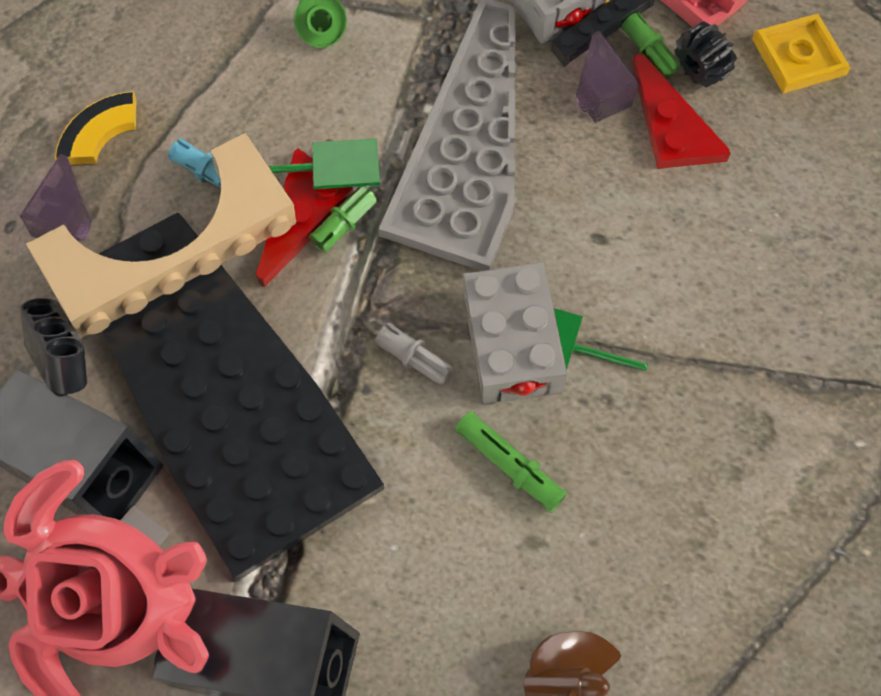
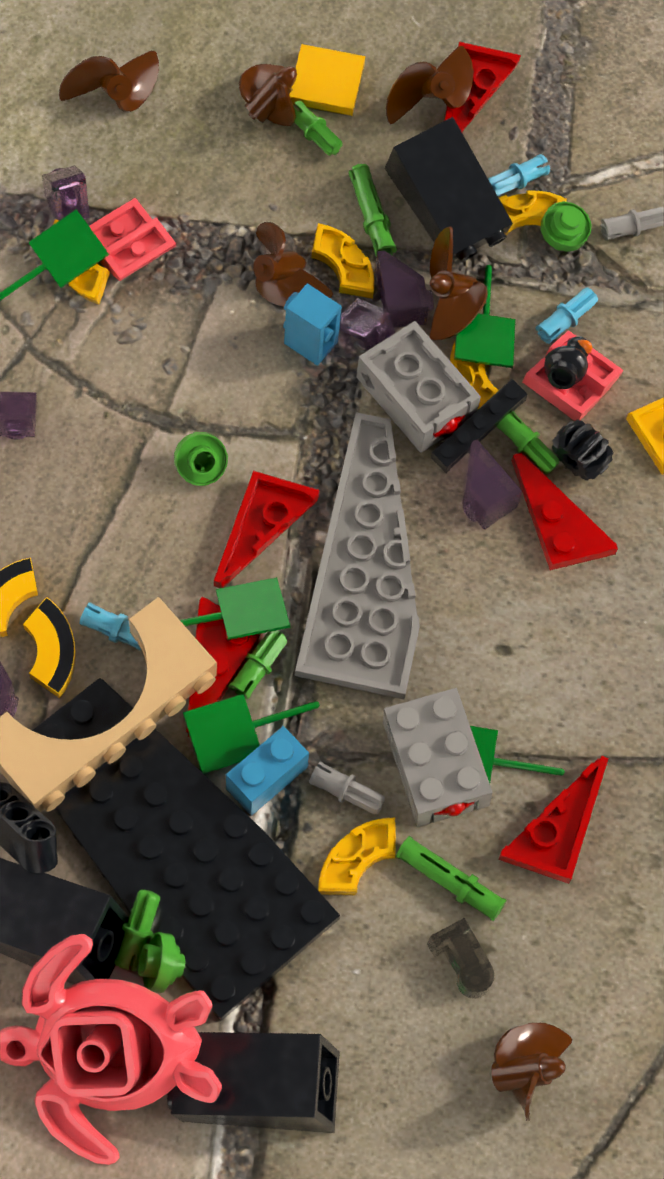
camera: 10 degrees left, 0 degrees up
(139, 179) = (54, 647): none -> tile
(160, 470) = (137, 929): none -> bright green axle
(176, 508) = (160, 962): none -> bright green plate
(297, 282) = (225, 731): none -> green piece
(331, 323) = (267, 770): none -> dark azure brick
(373, 81) = (264, 514): none -> red wing
(412, 423) = (355, 854): none -> yellow tile
(514, 547) = (466, 958): none -> clear smoke leg
(629, 434) = (555, 837): none -> red wing

